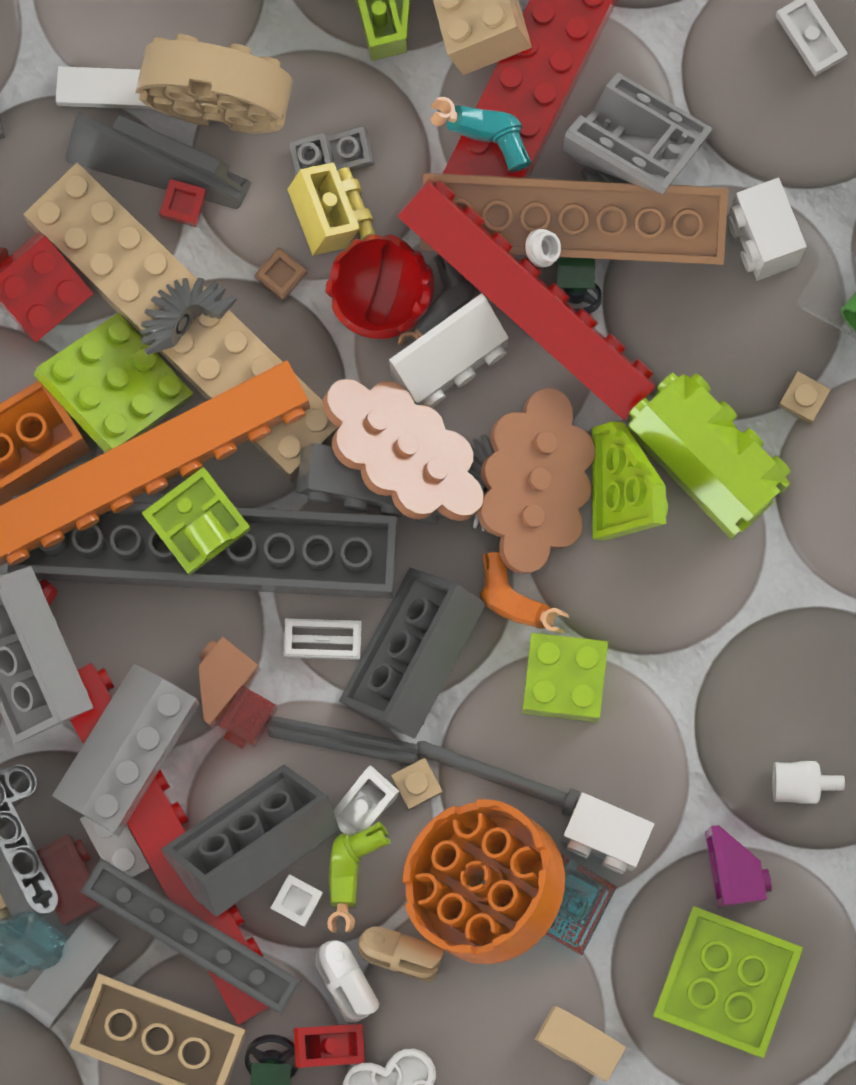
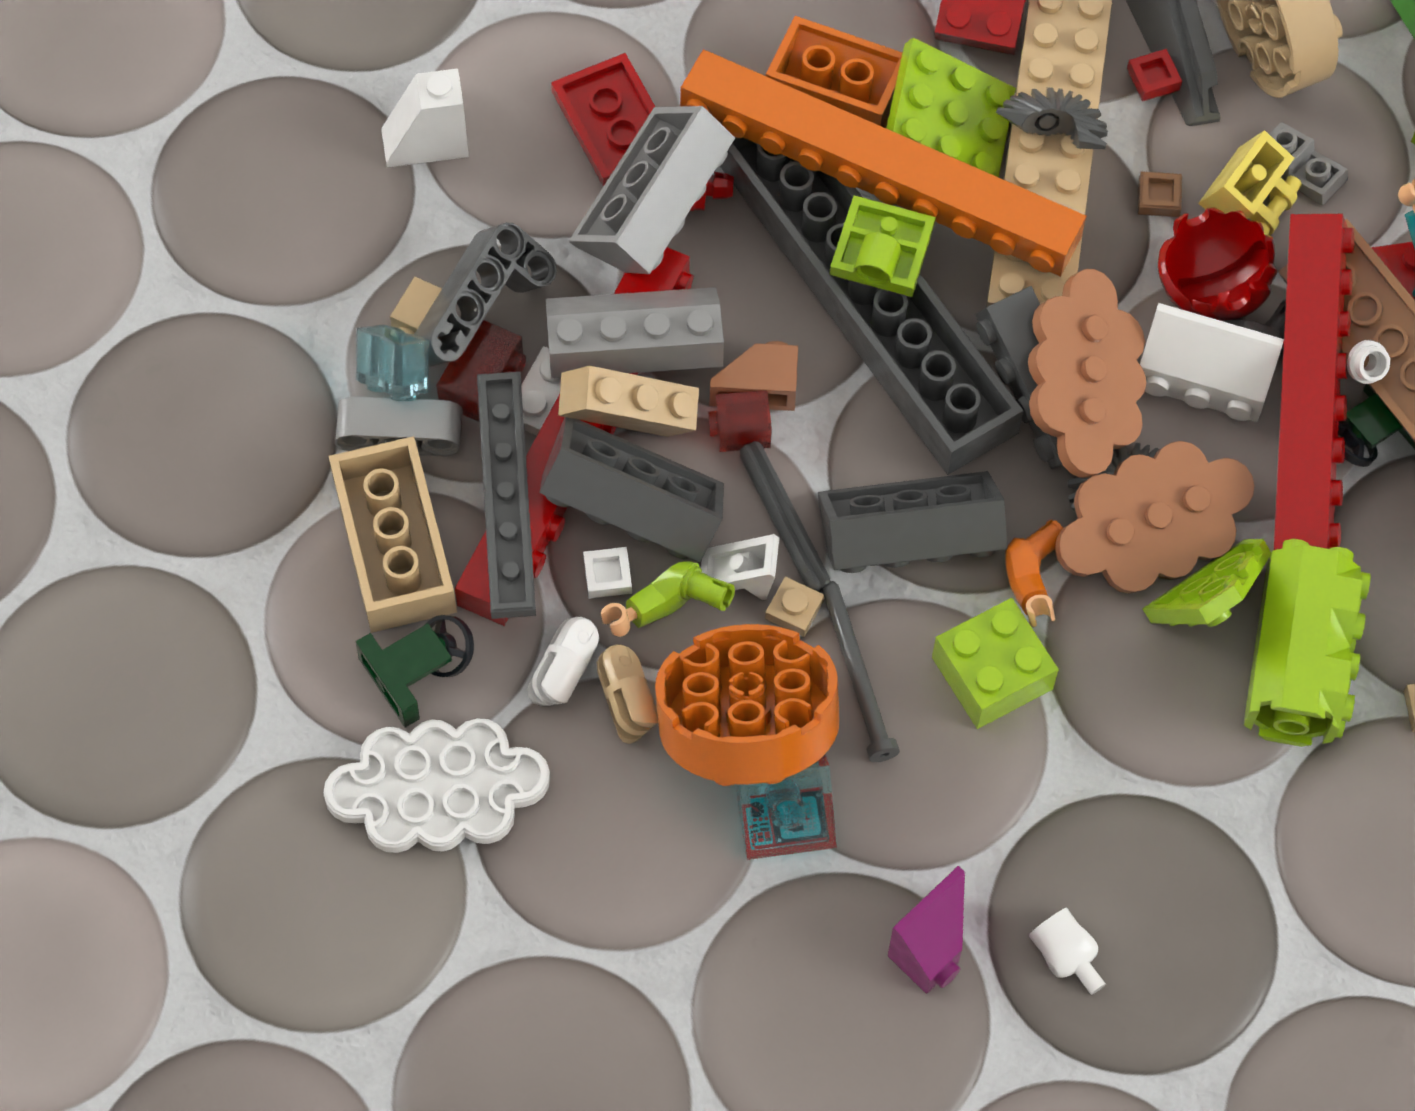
camera: 50 degrees right, 15 degrees down
(184, 796) = (628, 401): none -> tan brick
(329, 1045) = (492, 680): red slope -> none
(354, 640) = (882, 468): white tile -> none
(580, 1043) = (662, 908): tan slope -> none
(606, 833) = (878, 791): white brick -> none
(727, 982) = (823, 1007): lime plate -> none

